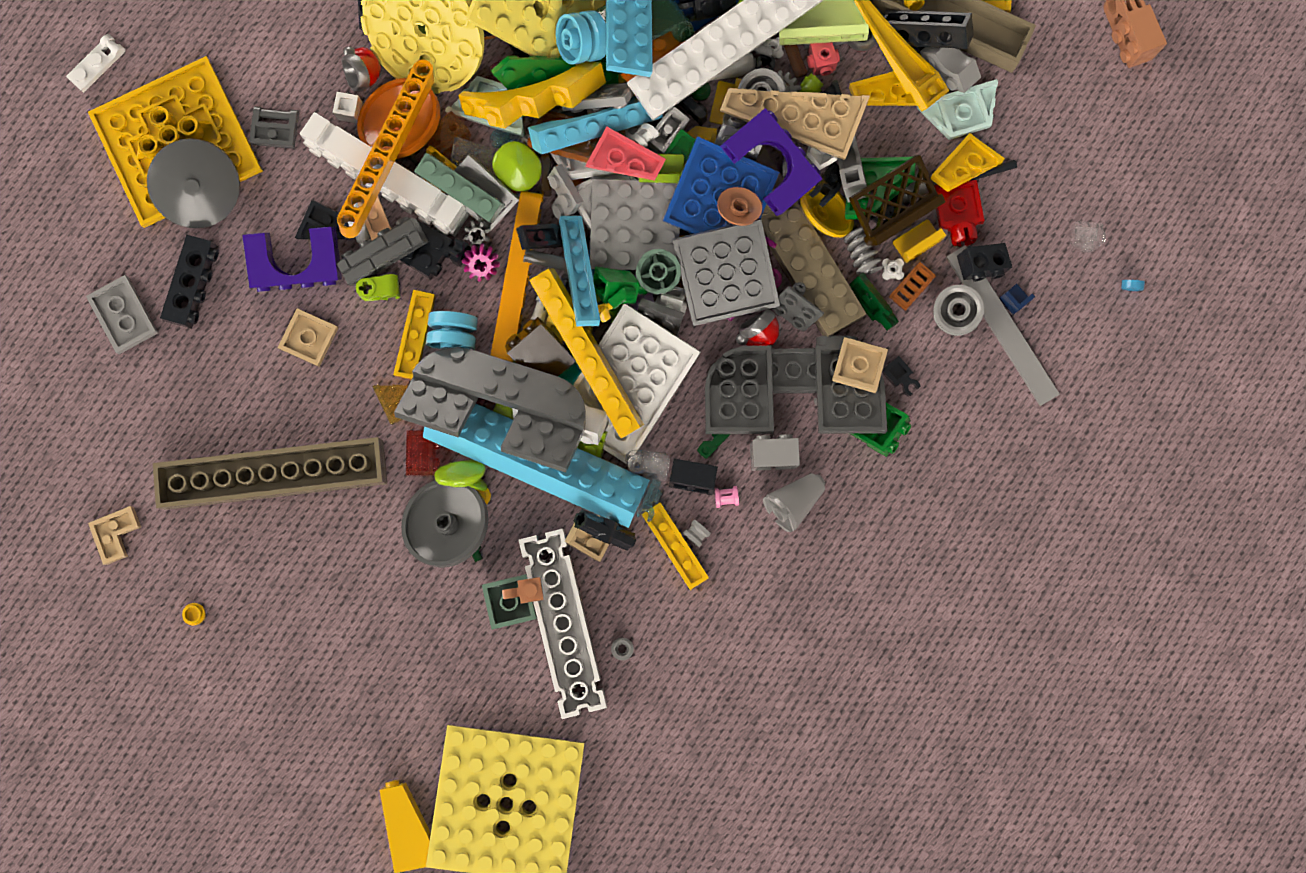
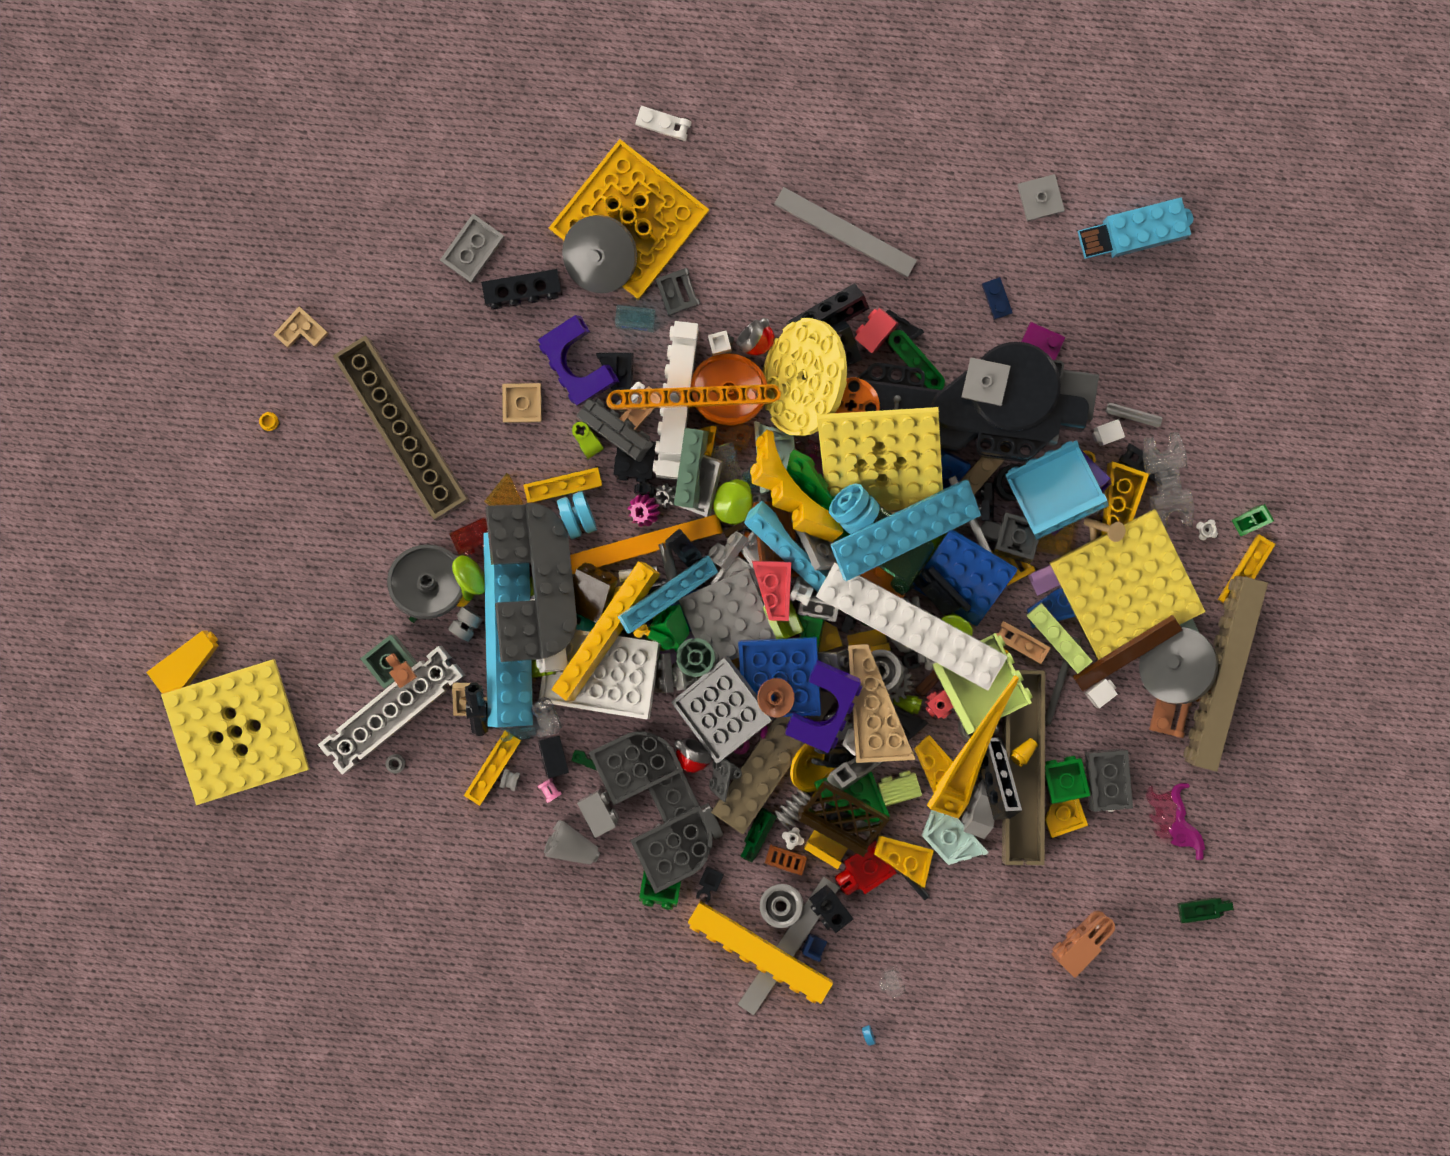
camera: 65 degrees right, 5 degrees up
(278, 179) = (635, 318): none -> clear light blue brick
(506, 495) = (470, 619): none -> light grey wheel
(860, 365) = (698, 848): tan plate -> none
(891, 135) = (899, 788): none -> yellowish green brick
(996, 355) = (760, 952): none -> yellow brick

